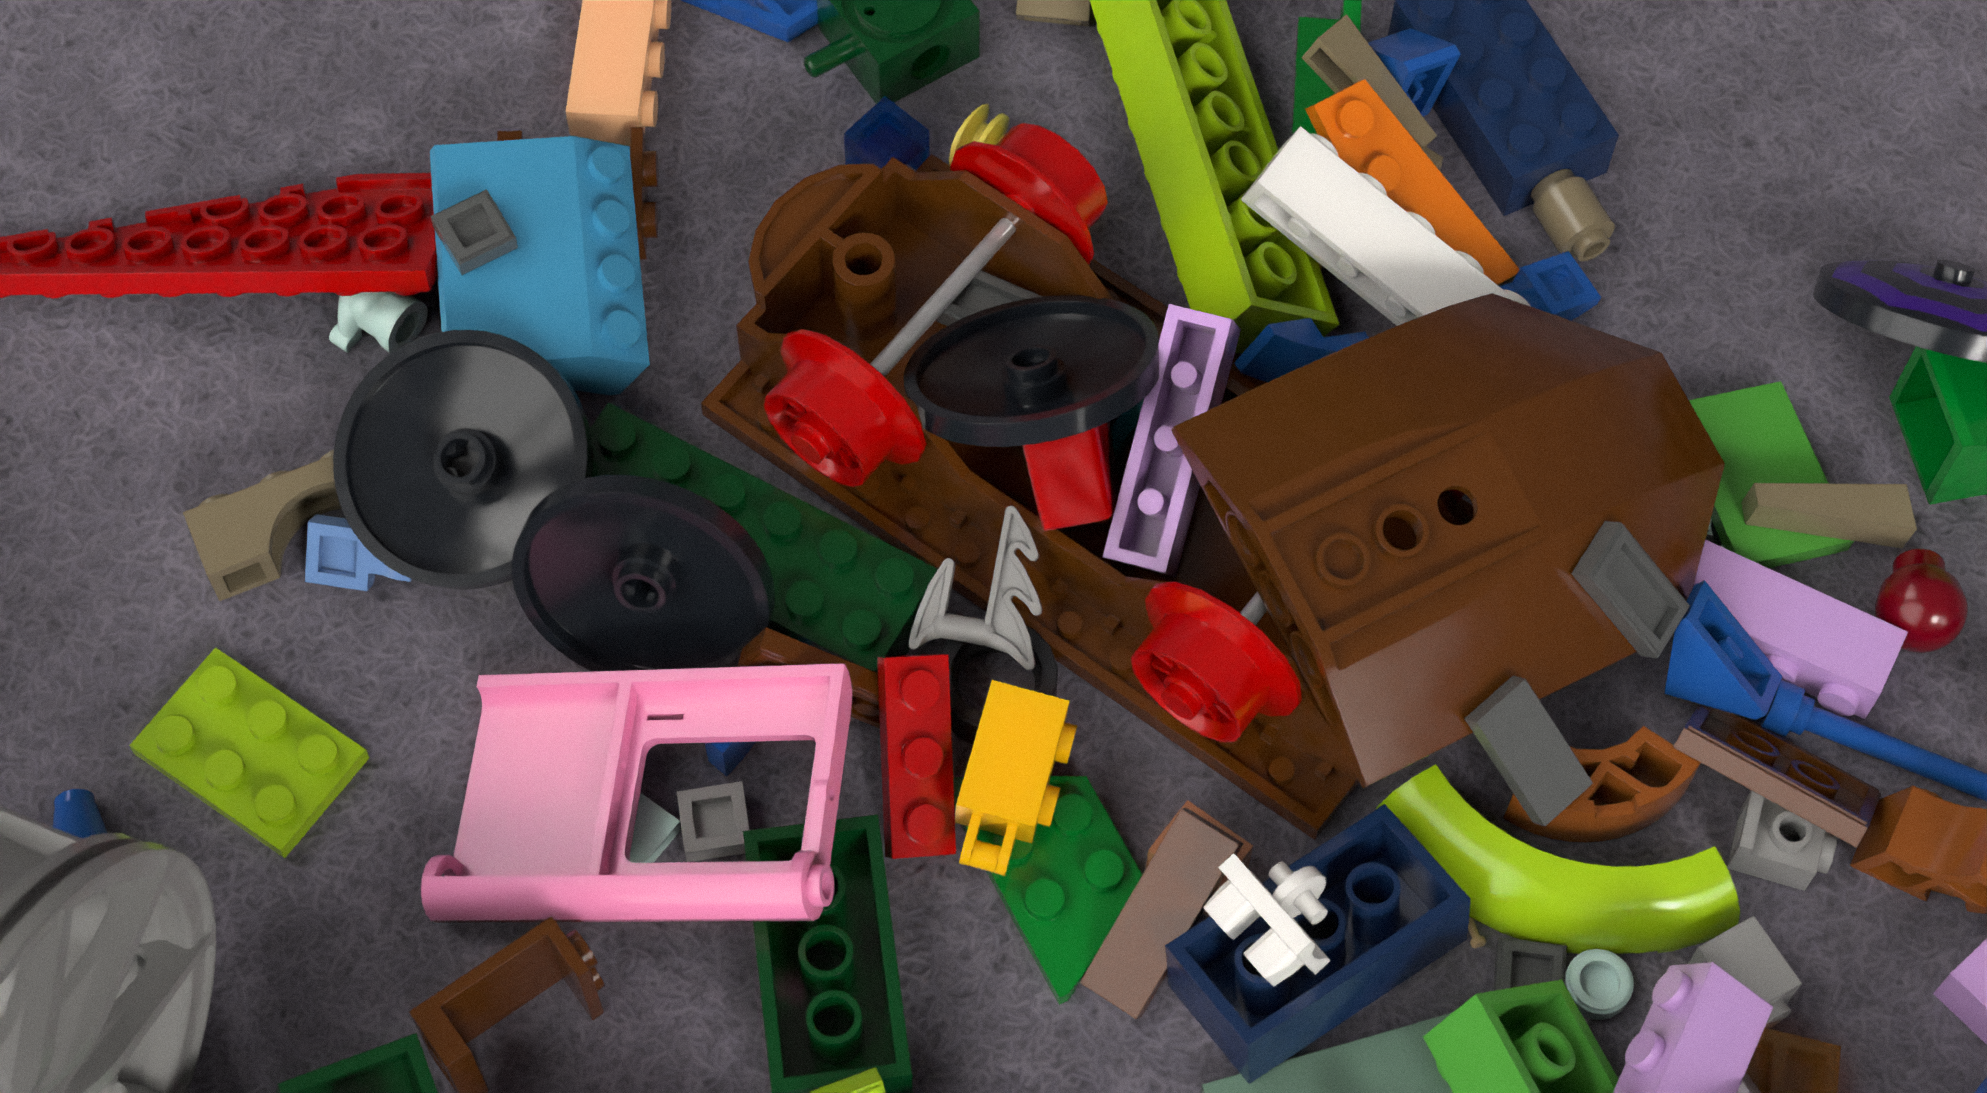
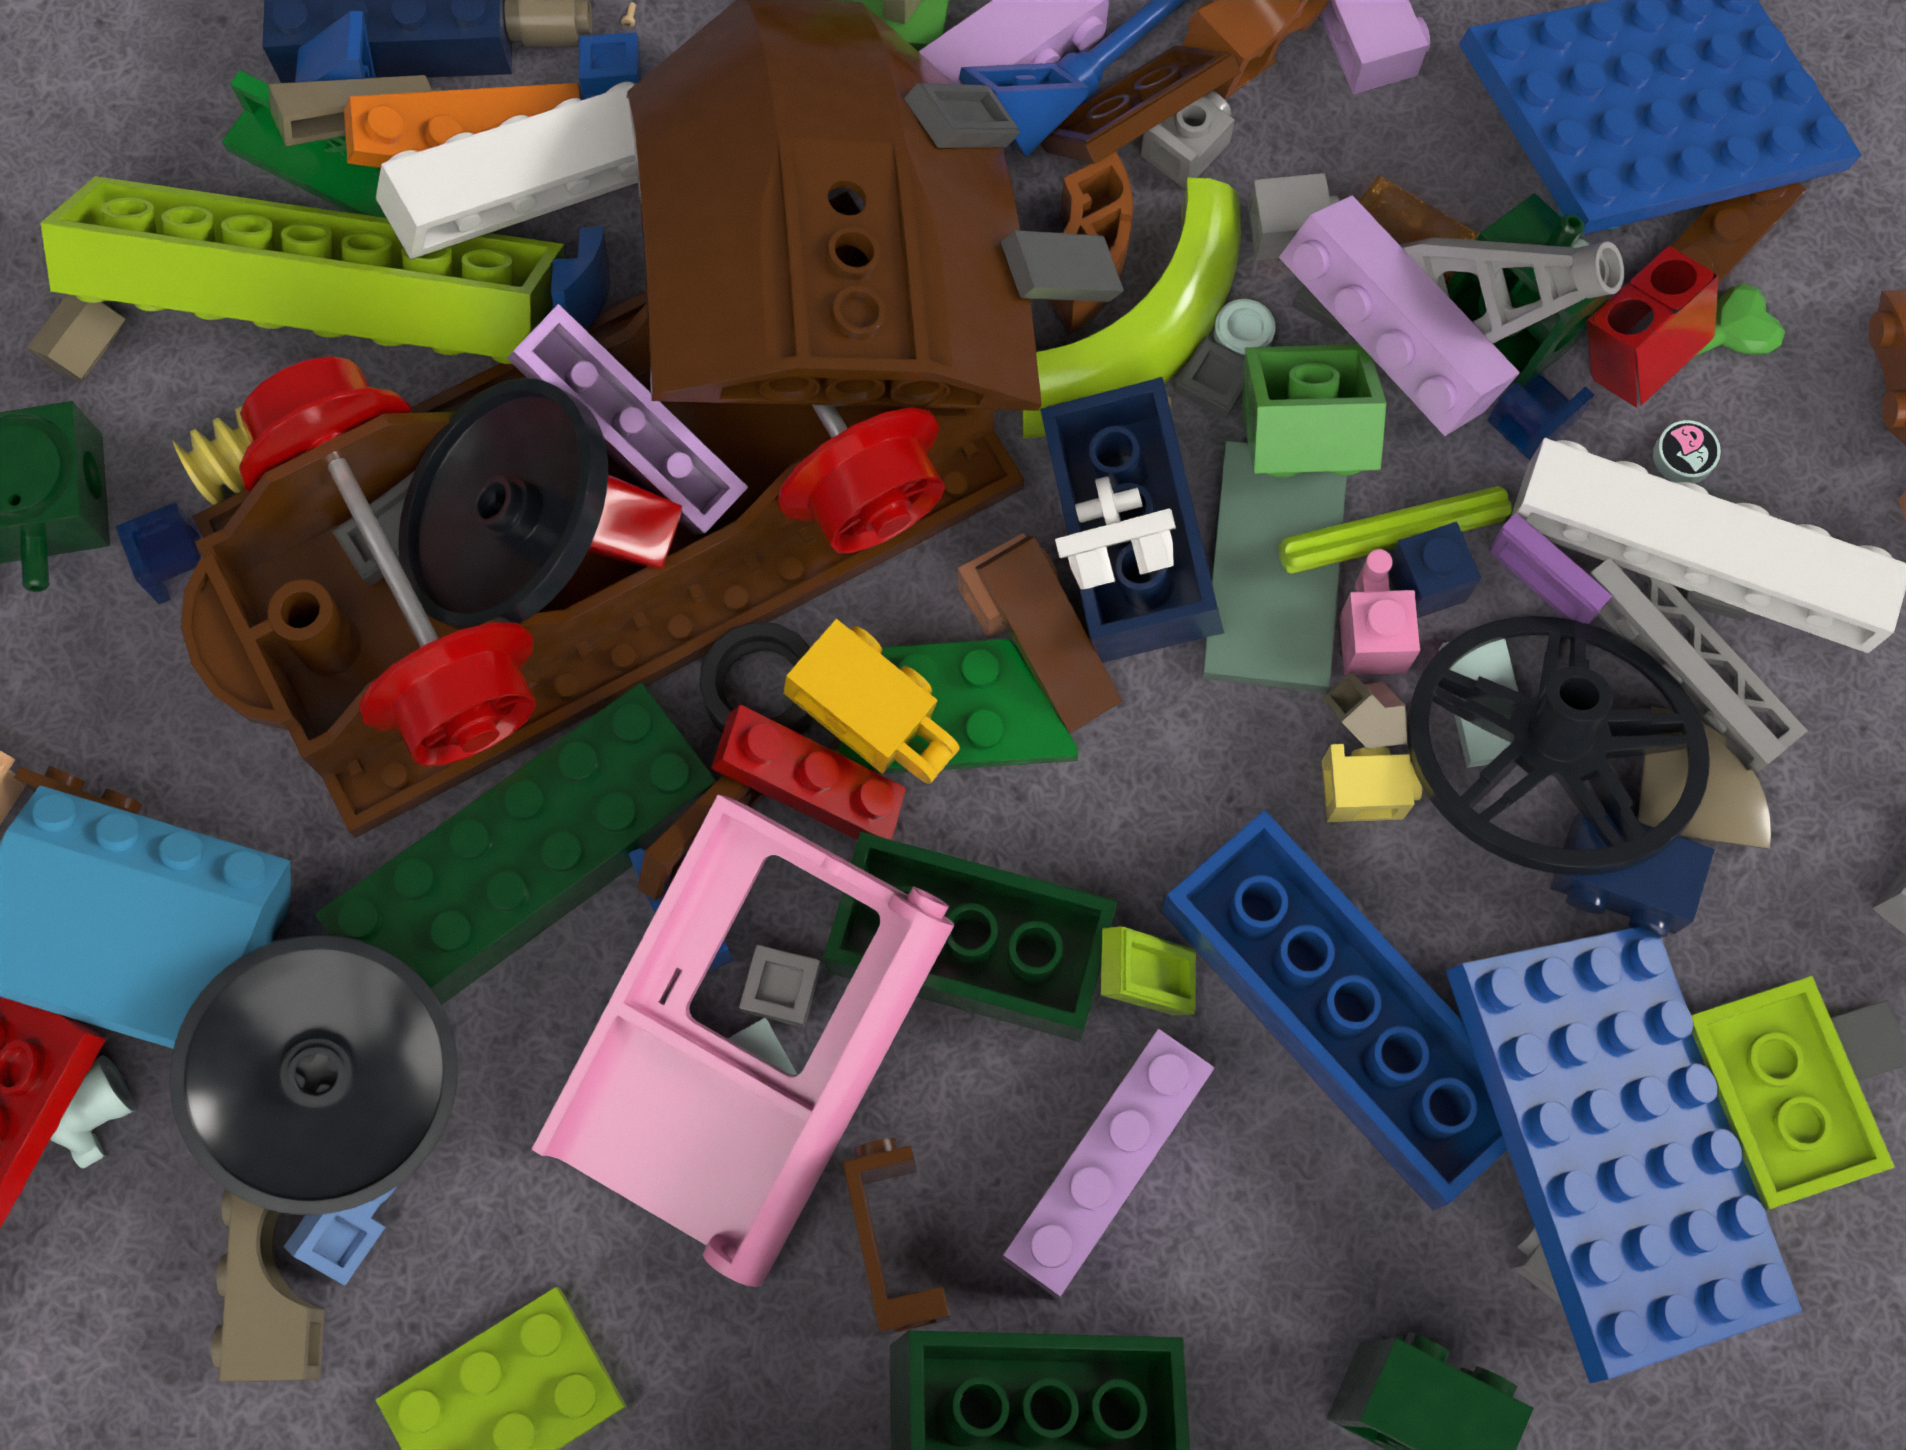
camera: 65 degrees left, 10 degrees up
(474, 232) = (68, 967): dark grey tile -> none
(640, 576) = (530, 947): black dish -> none
(1003, 625) = (722, 649): light grey piece -> none
(1616, 288) = (628, 19): none -> tan piece

